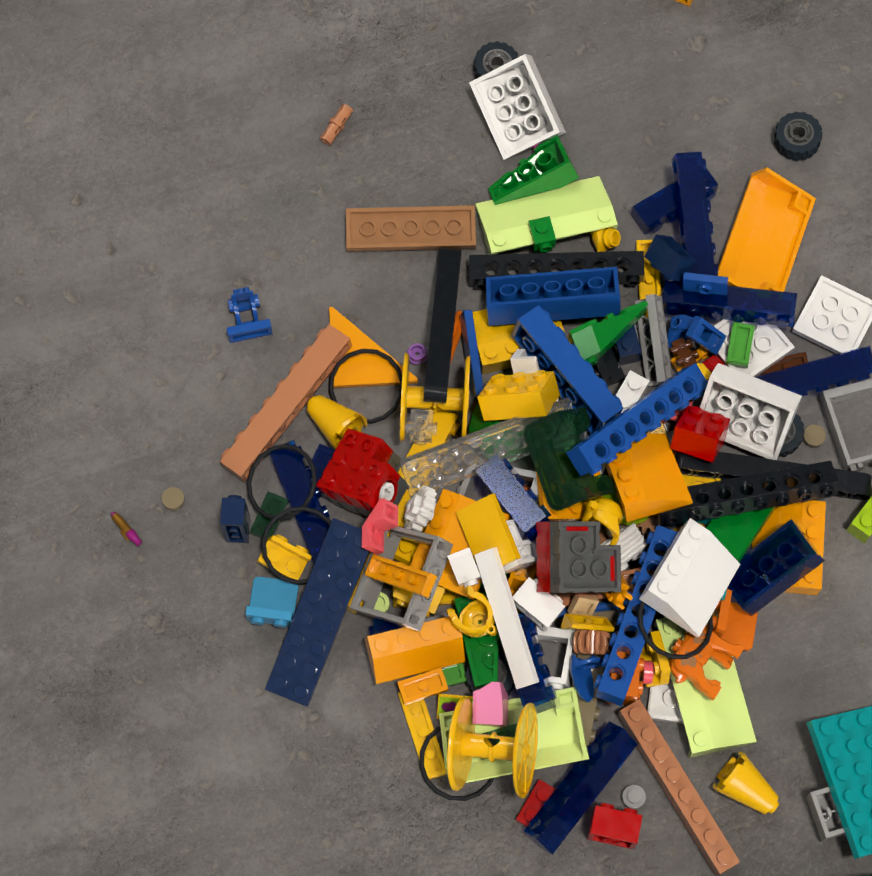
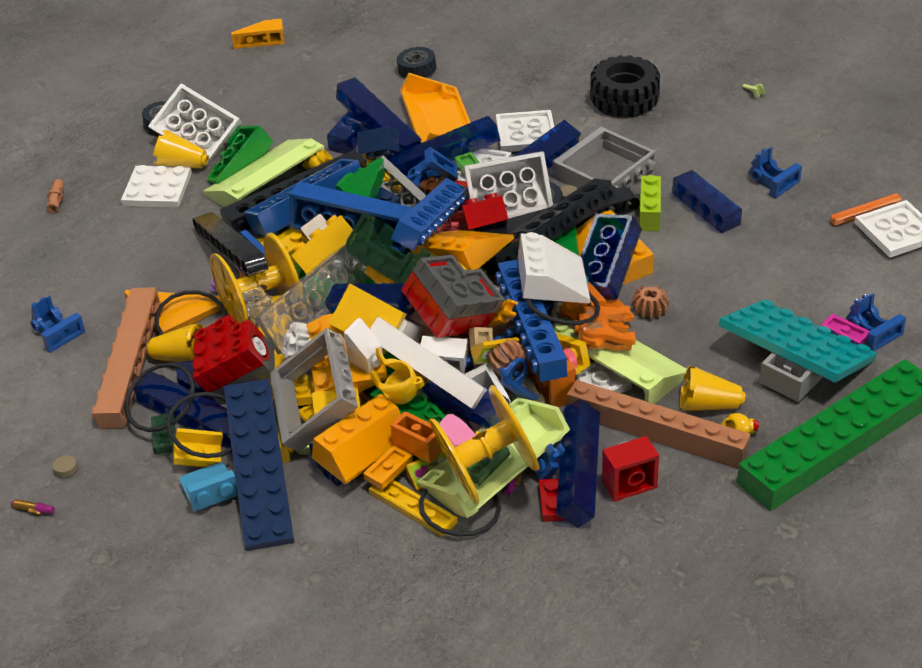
camera: 30 degrees left, 30 degrees down
(235, 519) = (134, 435): dark blue brick -> none
(381, 519) = (267, 366): coral slope -> none
(400, 575) = (312, 377): light orange tile -> none
(410, 228) = (157, 223): medium nougat plate -> none
(437, 167) = (156, 186): none -> white plate
(458, 677) = (415, 437): none -> orange brick
(479, 139) = (176, 151): none -> yellow cone
(542, 234) = (269, 171): green bracket -> none
(554, 773) = (548, 461): none -> blue plate
(705, 283) = (416, 139): blue plate -> none
(744, 839) = (742, 423): none -> yellow animal
(787, 633) = (650, 301): none -> nougat gear

